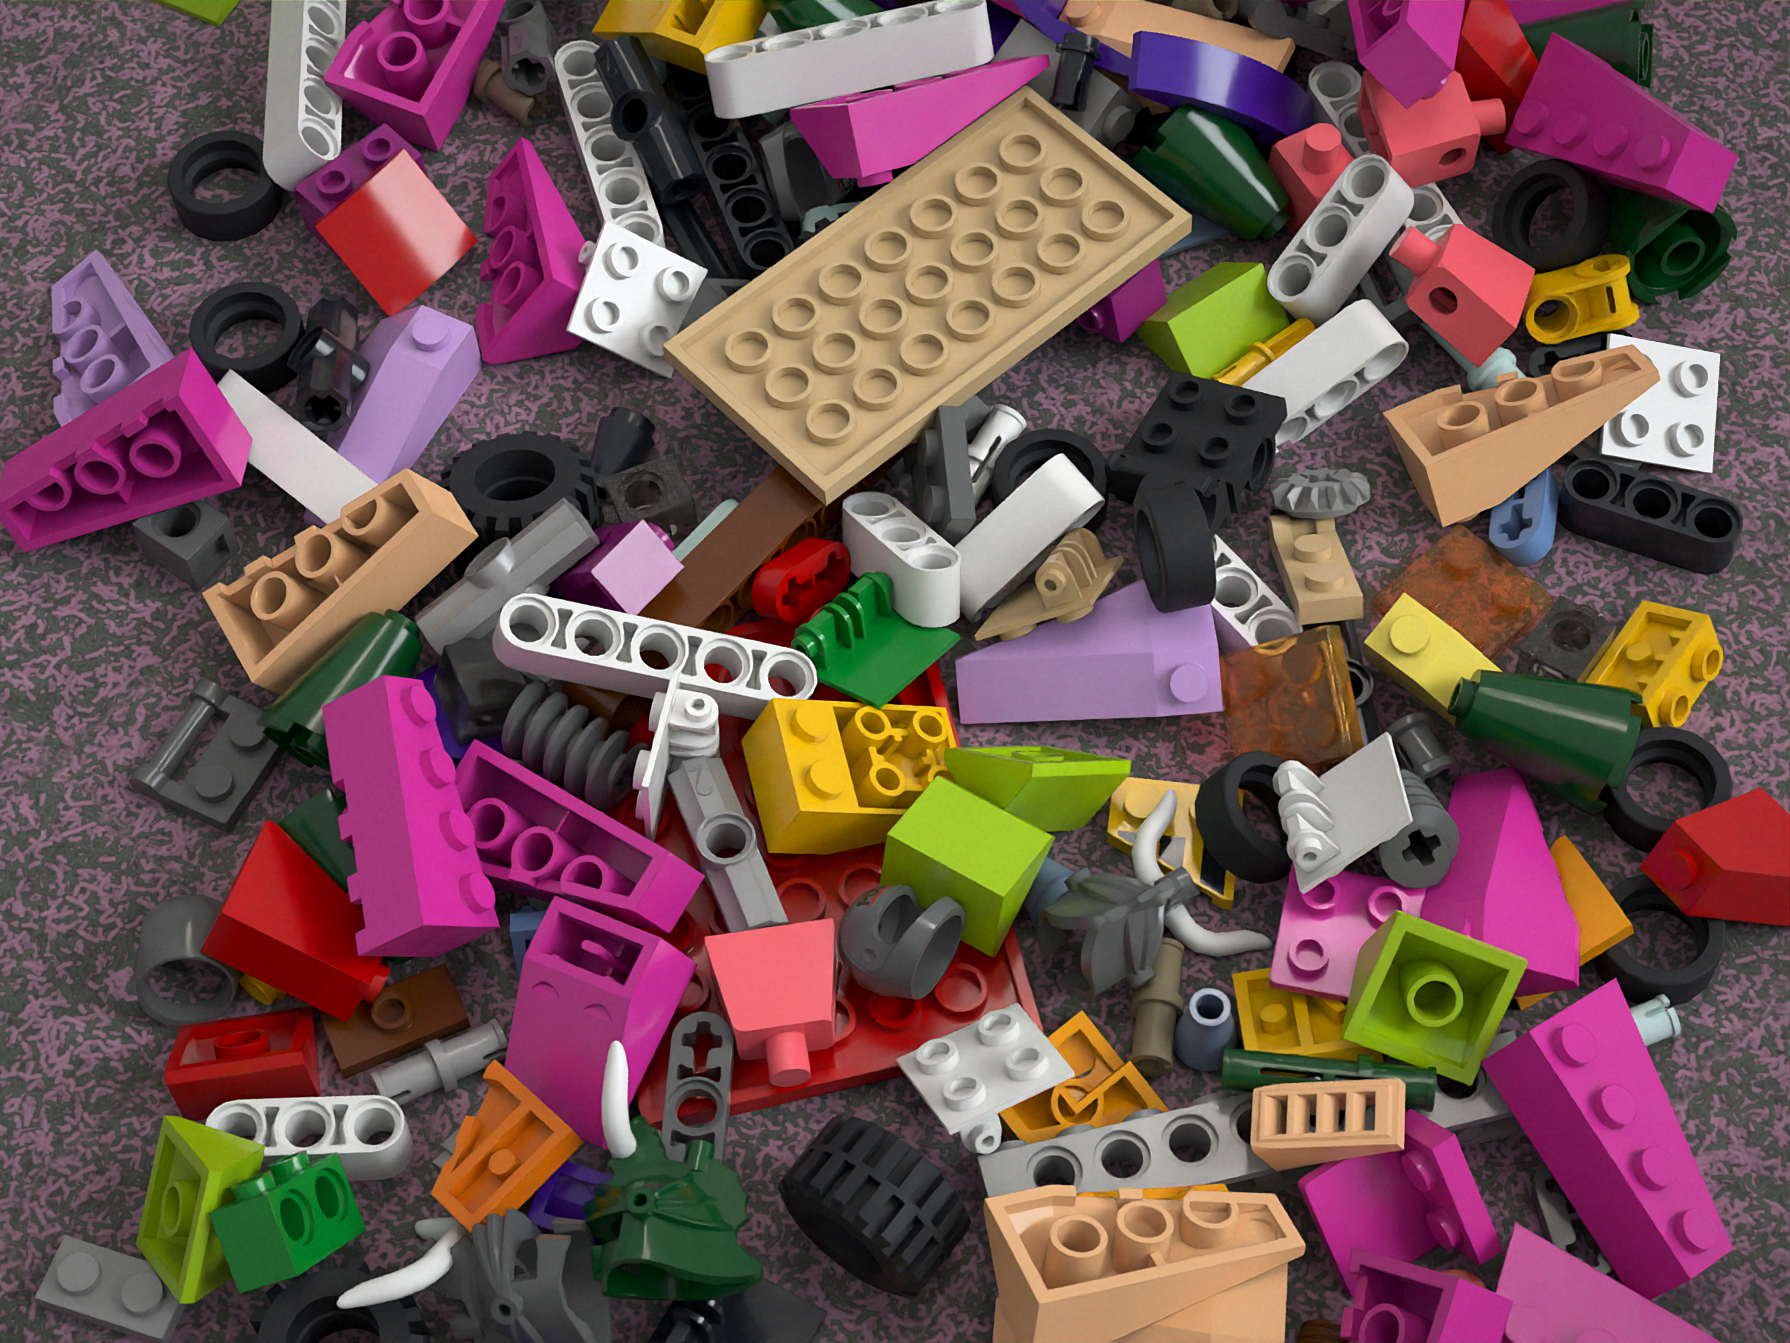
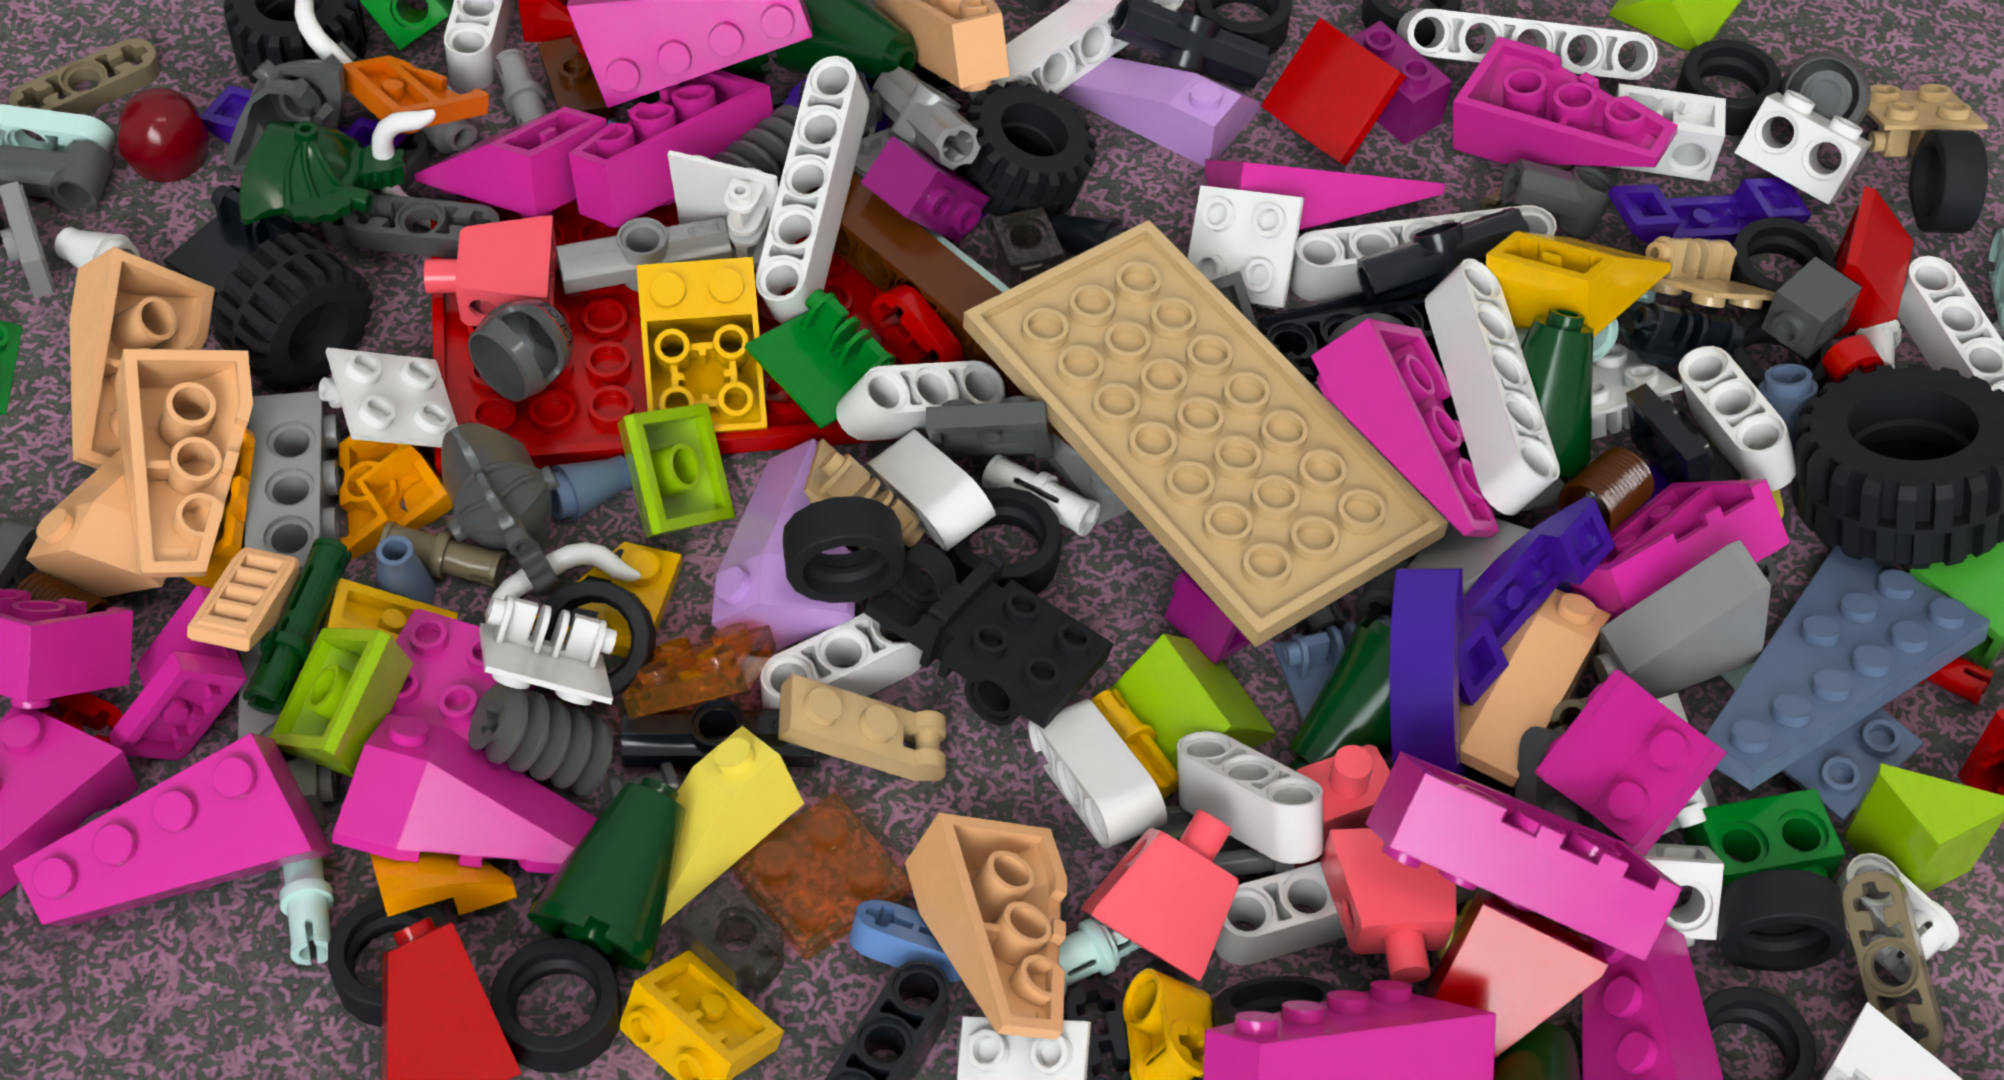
camera: 90 degrees right, 5 degrees down
(966, 851) = (582, 391): lime slope -> none
(1074, 71) = (1472, 553): black pin -> none
(1320, 493) = (960, 782): light grey gear -> none

